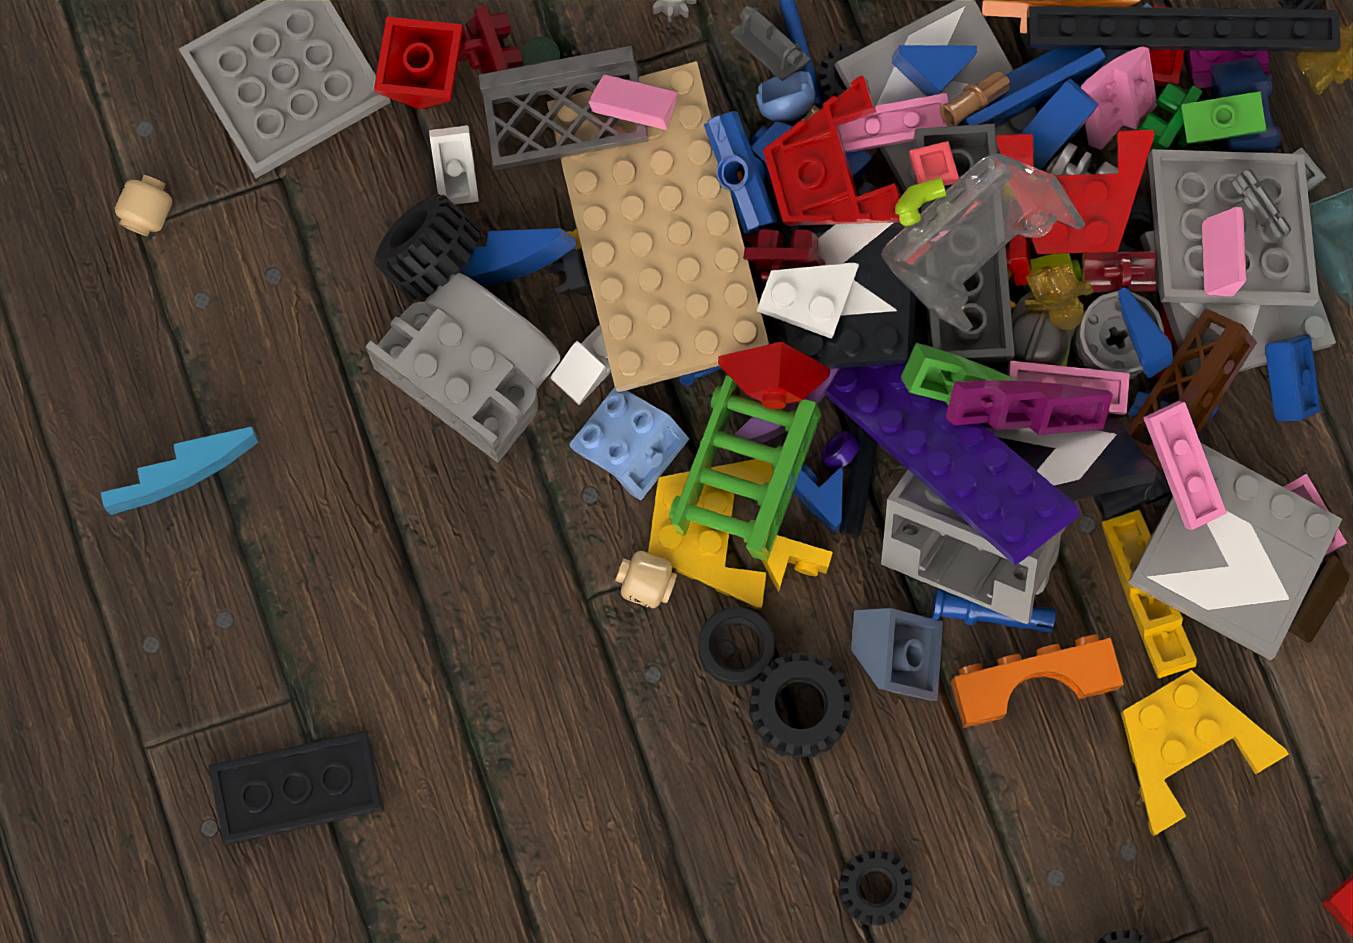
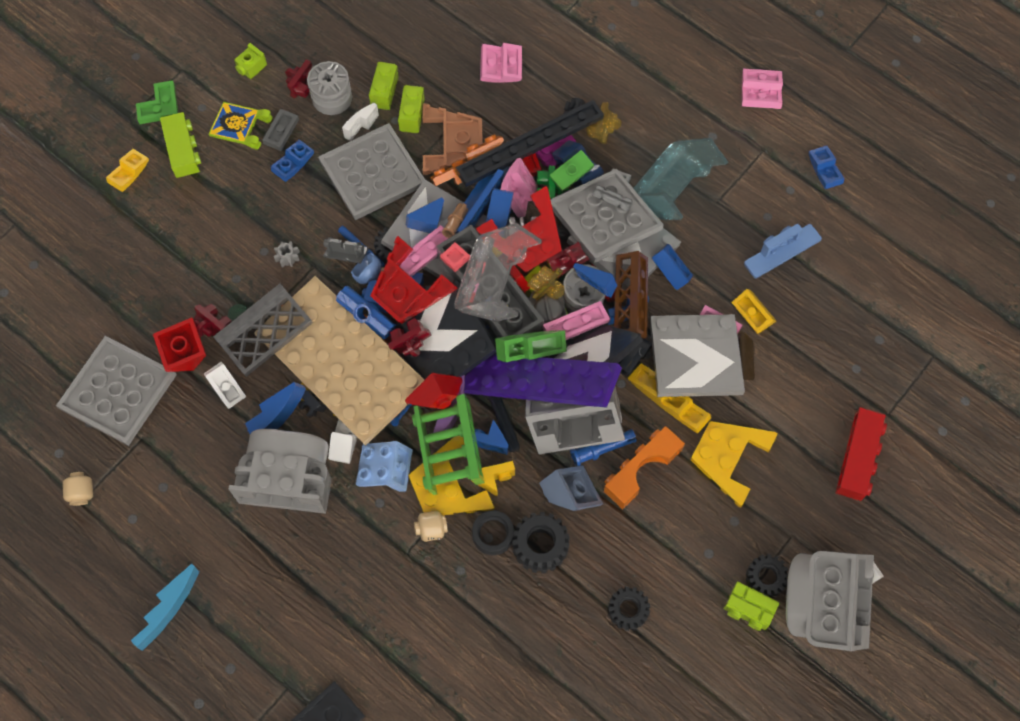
camera: 30 degrees left, 10 degrees down
(426, 247) = (232, 428): black tyre -> none
(633, 101) = (295, 307): bright pink slope -> none
(808, 296) = (431, 347): white wing -> none
(840, 450) = (487, 413): dark purple tile -> none
(914, 197) = (455, 272): lime arm -> none
(1029, 404) = (564, 337): magenta slope -> none
(1185, 465) = (651, 326): bright pink plate -> none
(1224, 253) = (610, 225): bright pink slope -> none

